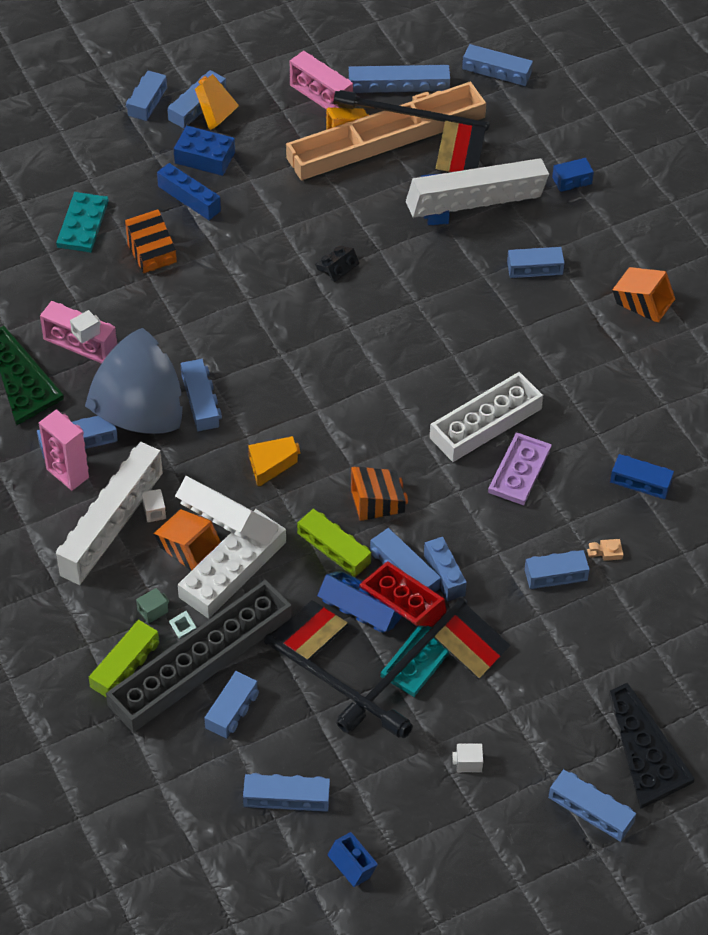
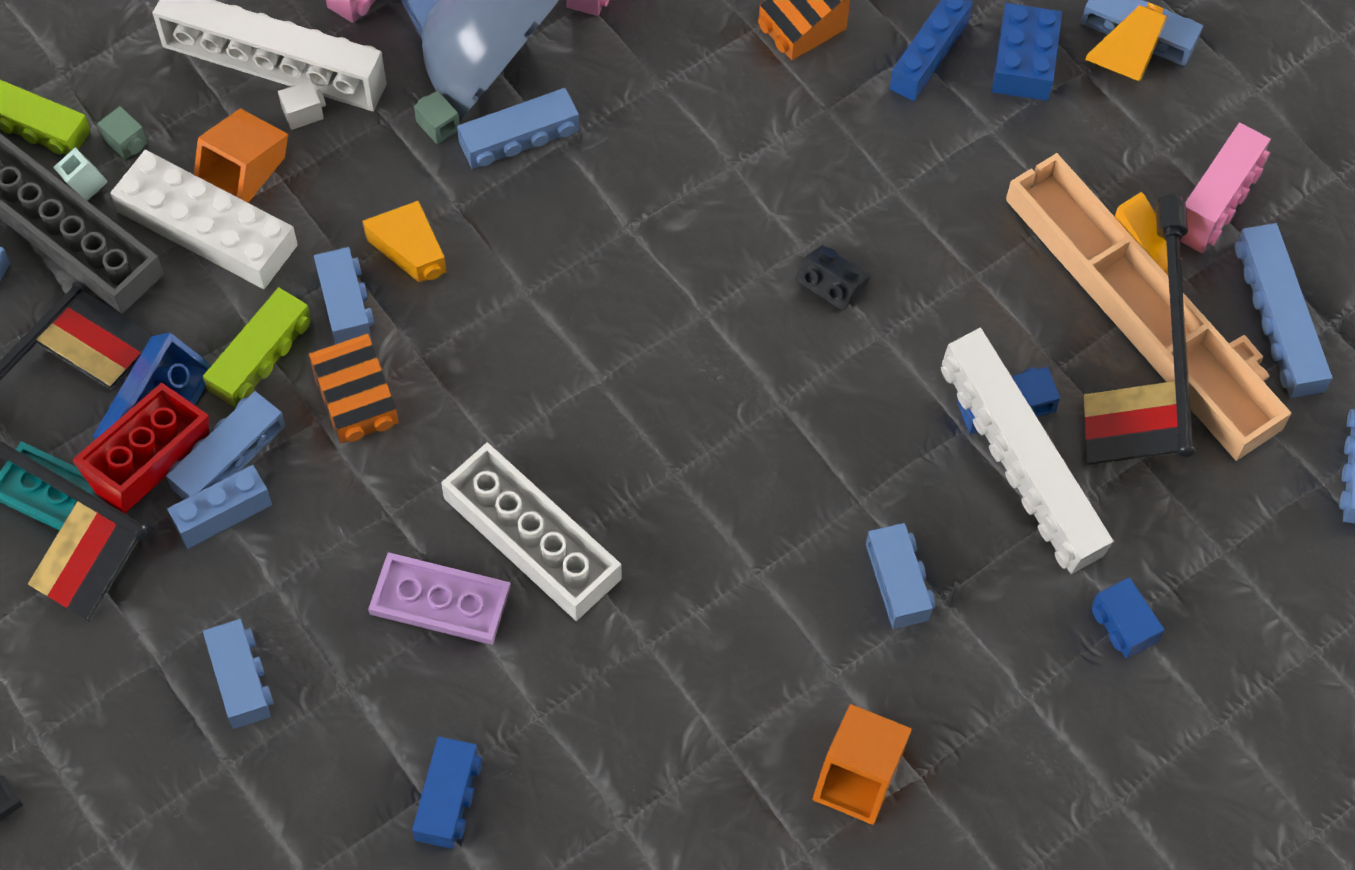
camera: 80 degrees right, 10 degrees up
(181, 435) = (436, 117): none -> sand green brick
(226, 512) = (253, 176): white brick -> none
(305, 495) = (343, 294): none -> medium blue brick
(608, 549) = (292, 755): light nougat plate -> none

